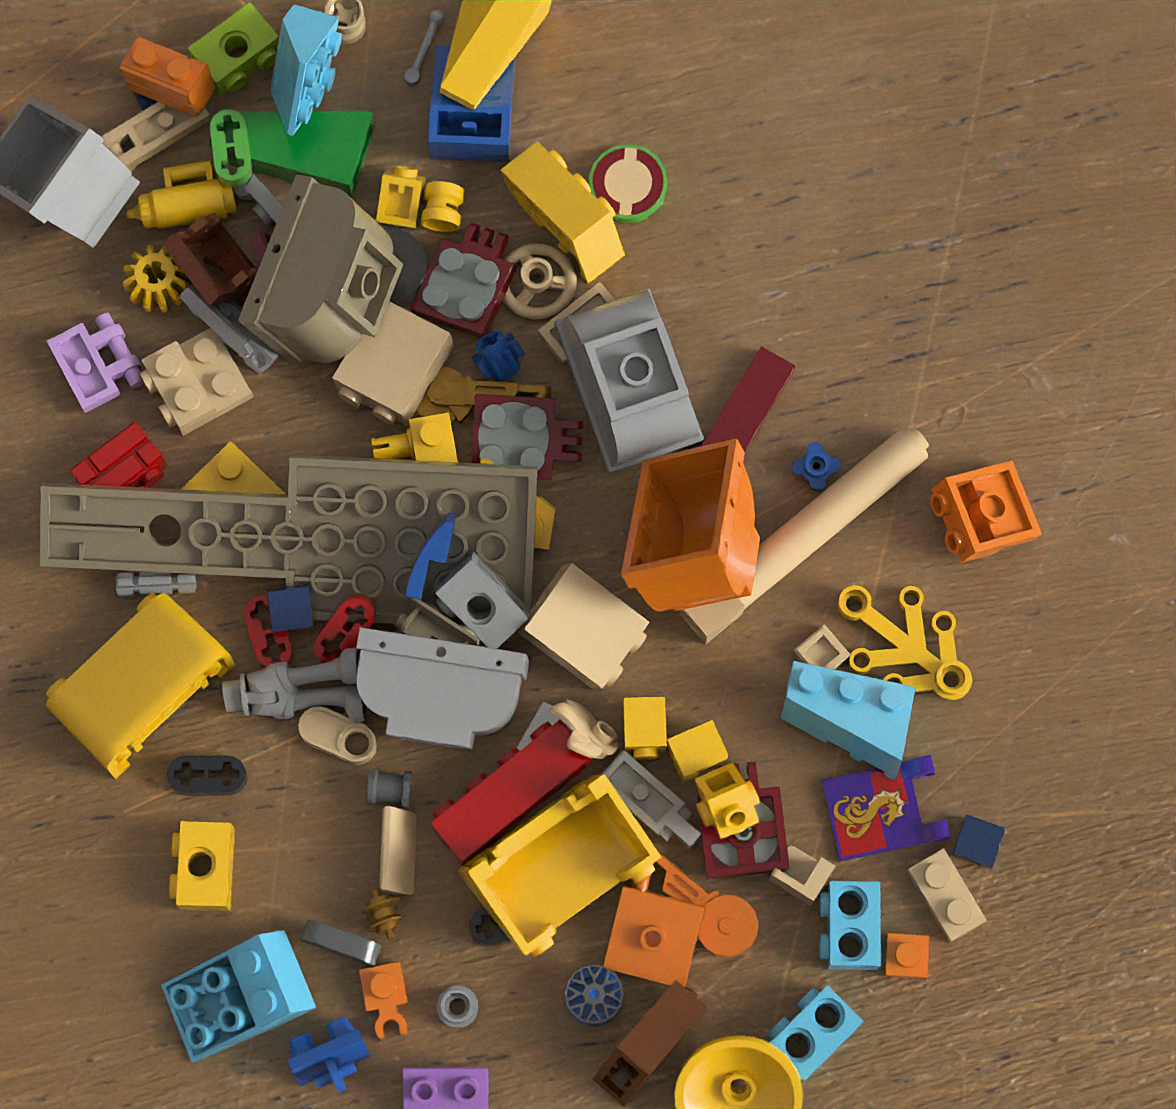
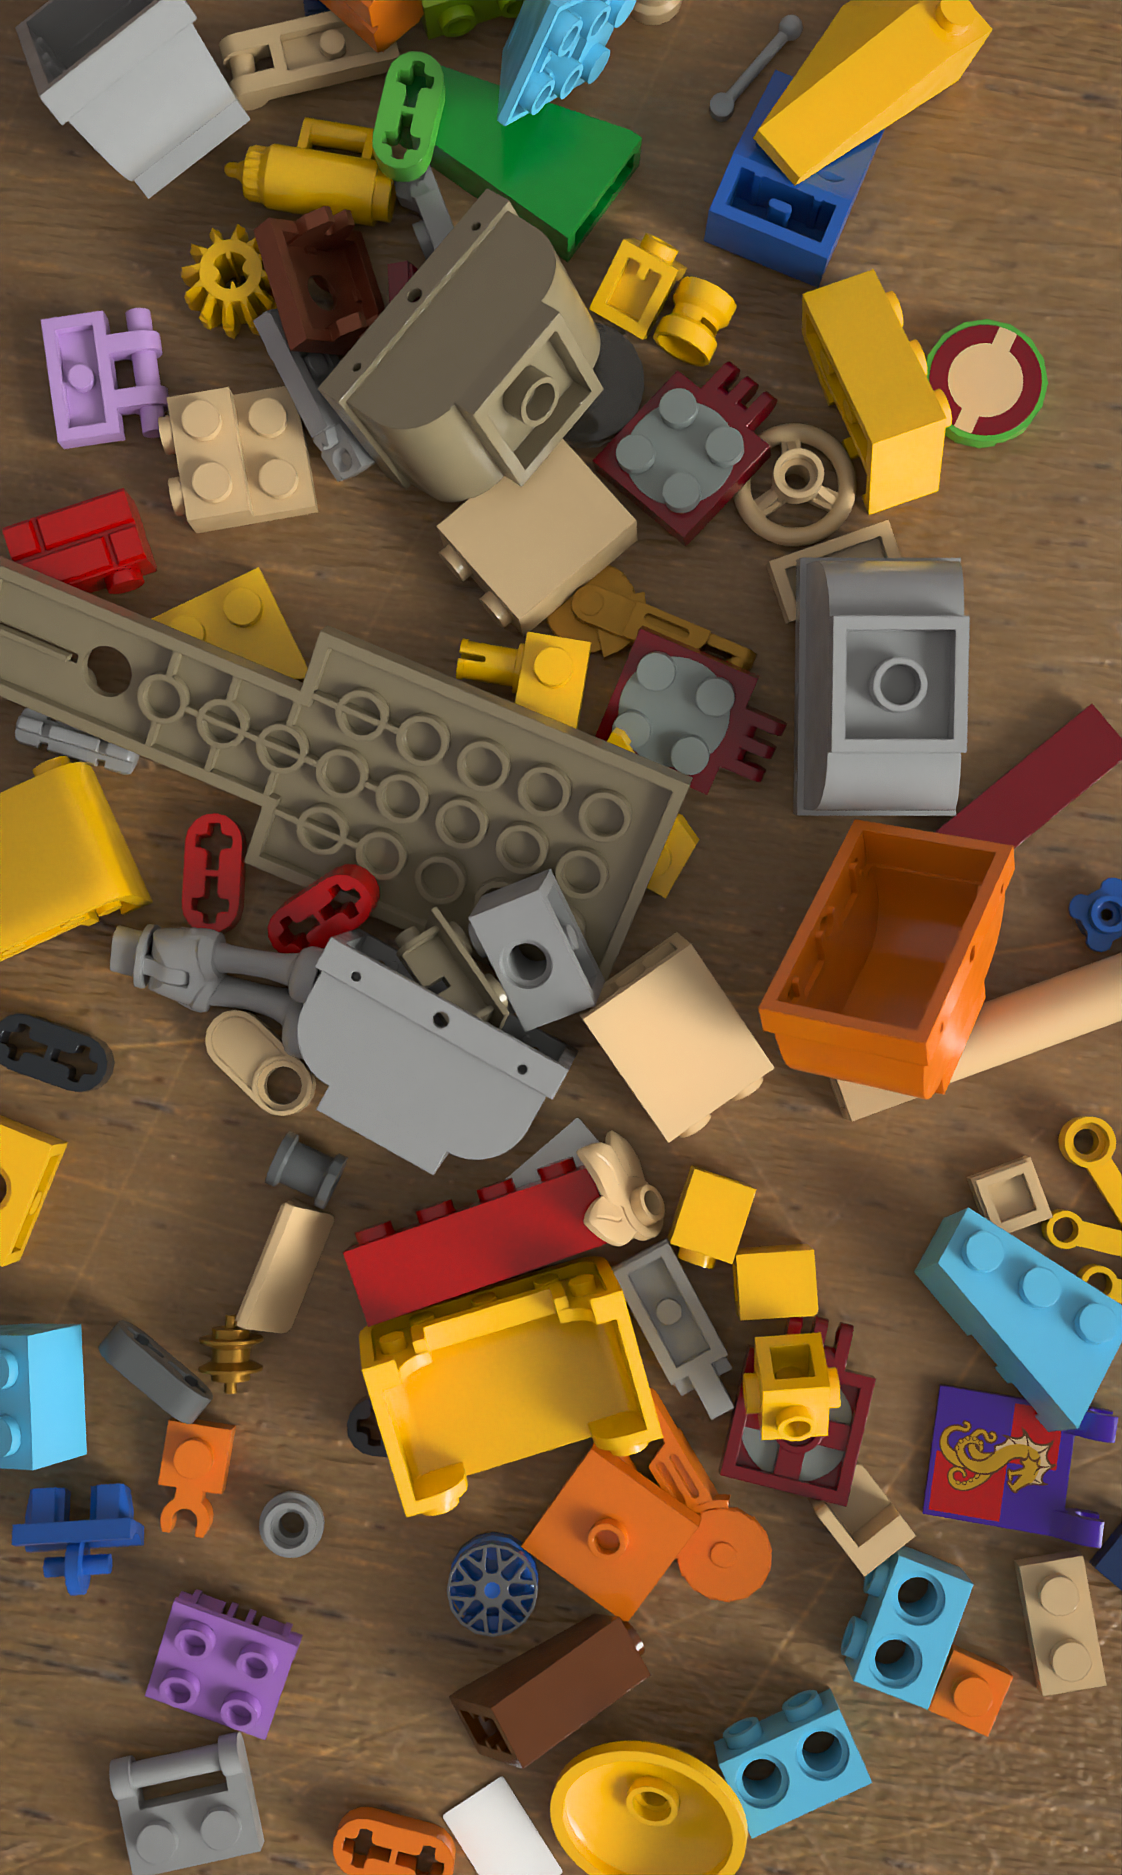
camera: 25 degrees right, 10 degrees up
(289, 608) = (251, 853): dark blue tile -> none
(435, 549) = (488, 850): blue slope -> none
(498, 355) = (696, 579): blue gear -> none

